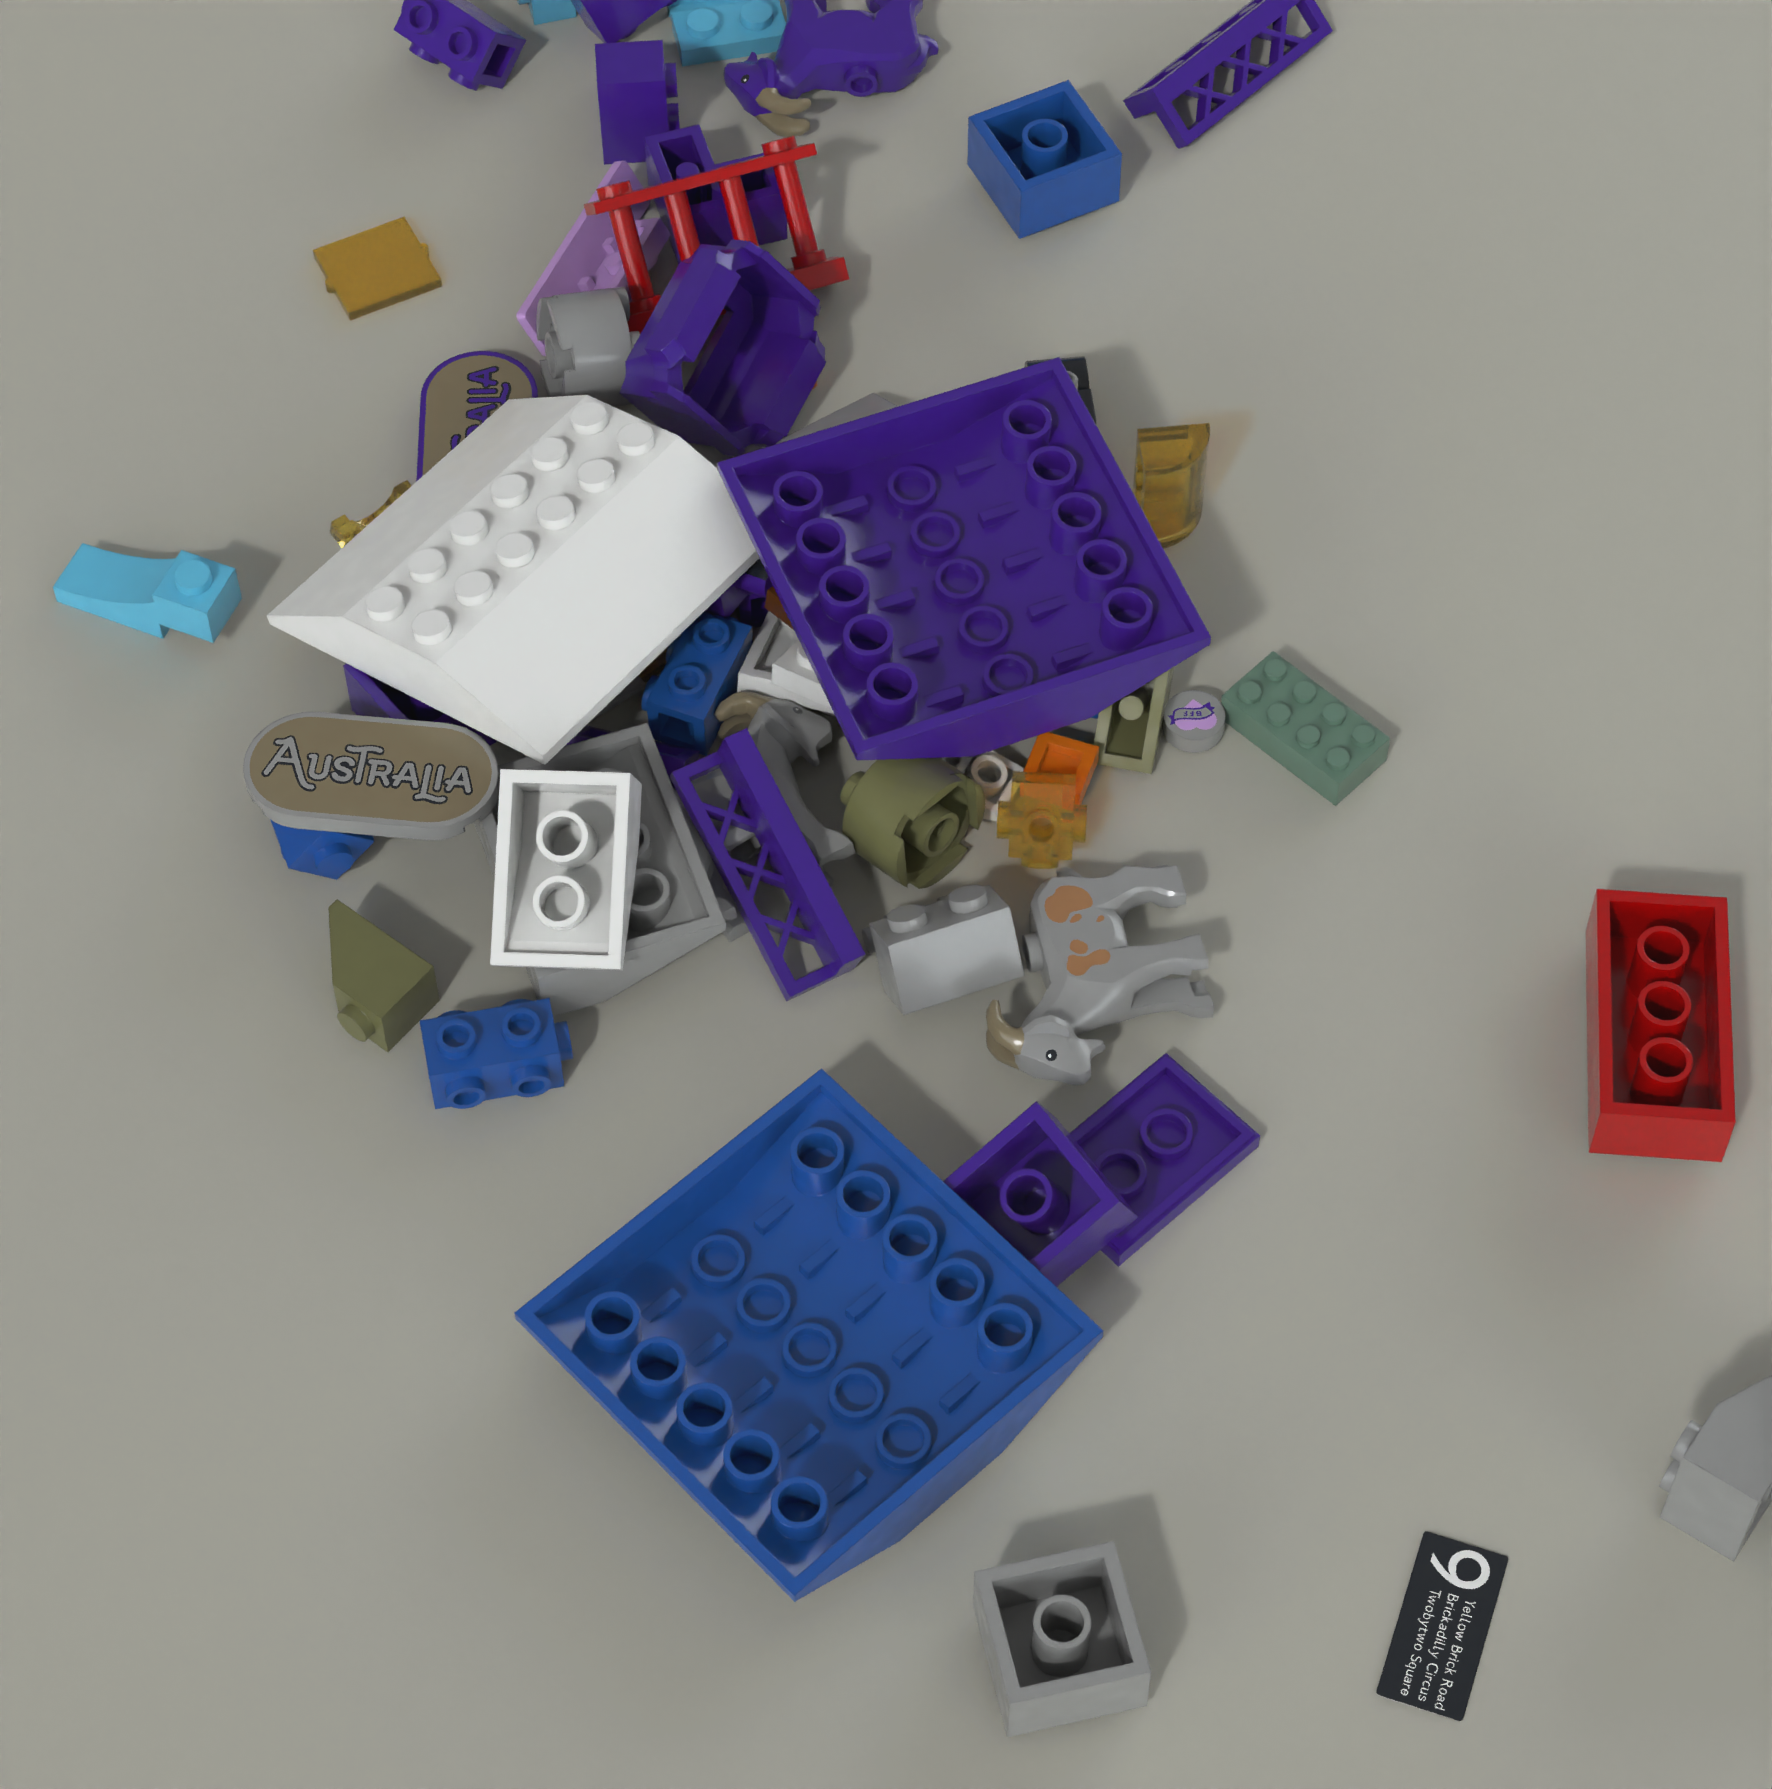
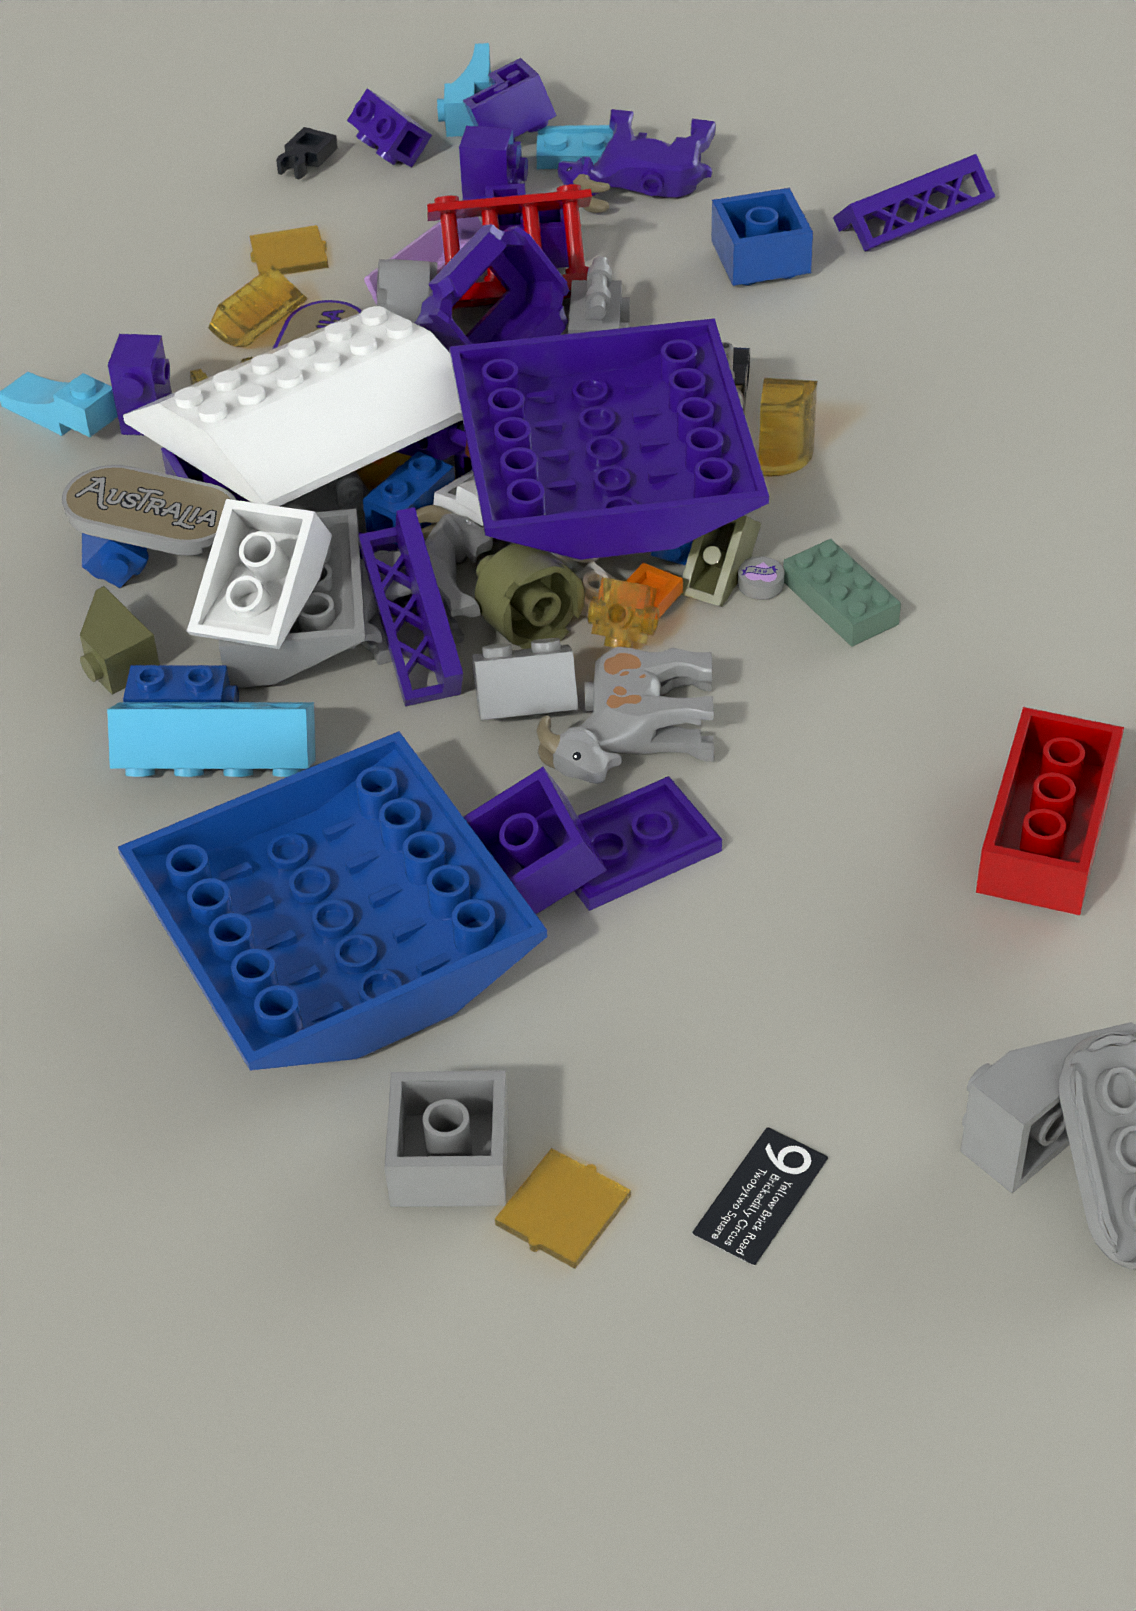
camera: 15 degrees right, 10 degrees down
(267, 547) = (138, 374): none -> dark purple brick
(347, 83) = (306, 149): none -> black plate
(376, 387) = (255, 308): none -> clear yellow brick
(563, 1108) = (211, 737): none -> medium azure brick
(859, 331) = (598, 301): none -> light grey brick
(1214, 1693) = (563, 1208): none -> clear yellow piece

